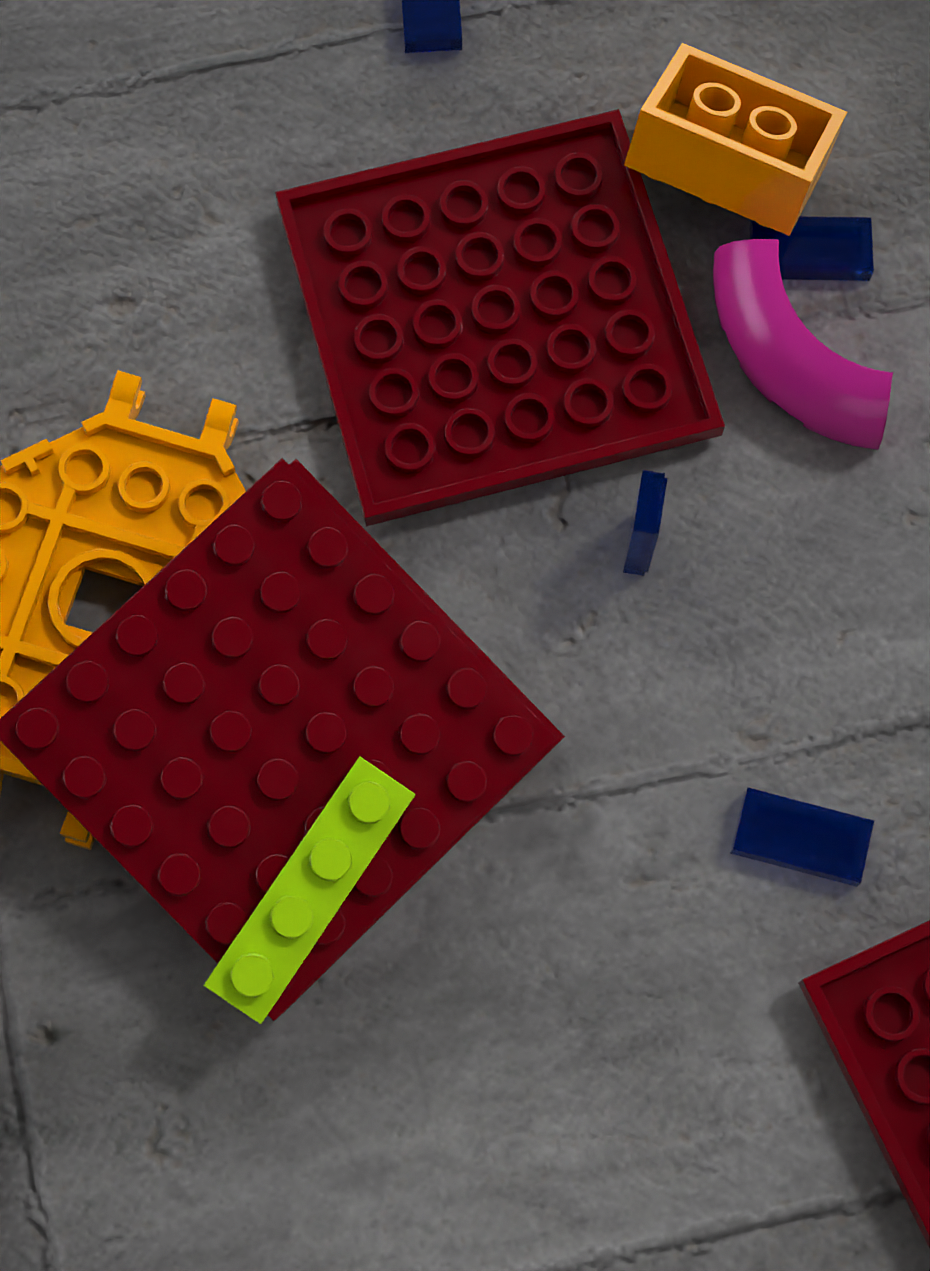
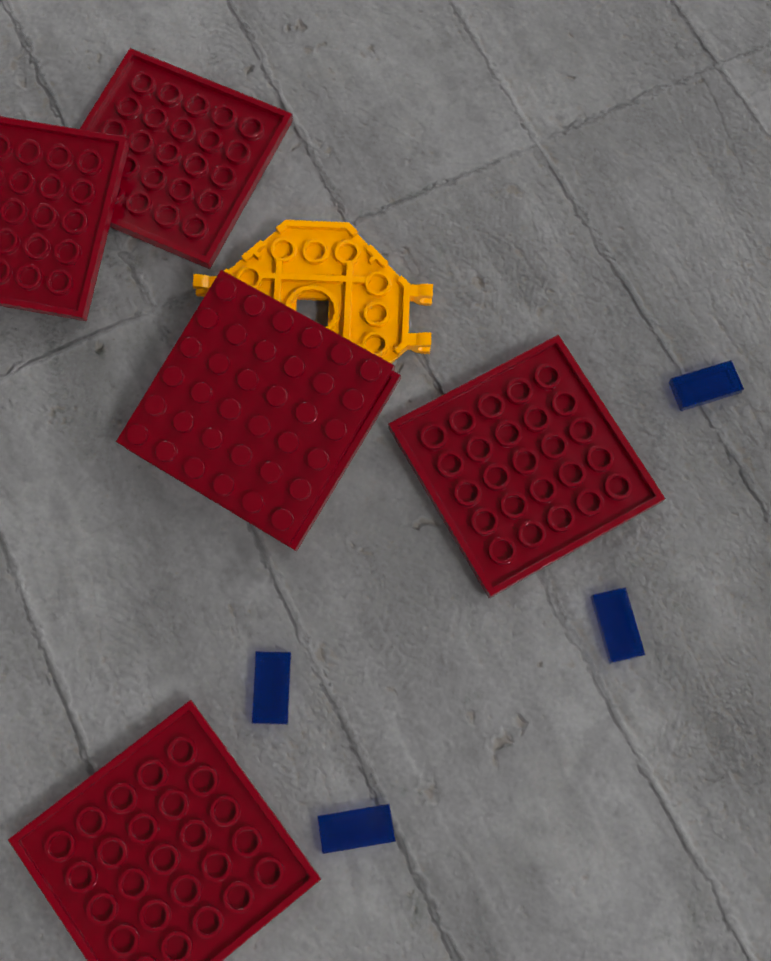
camera: 75 degrees right, 0 degrees up
(309, 890) = (178, 437): lime plate -> none
(645, 522) = (417, 561): clear blue tile -> none
(734, 138) = (663, 562): light orange brick -> none
(786, 358) = (539, 621): dark pink brick -> none

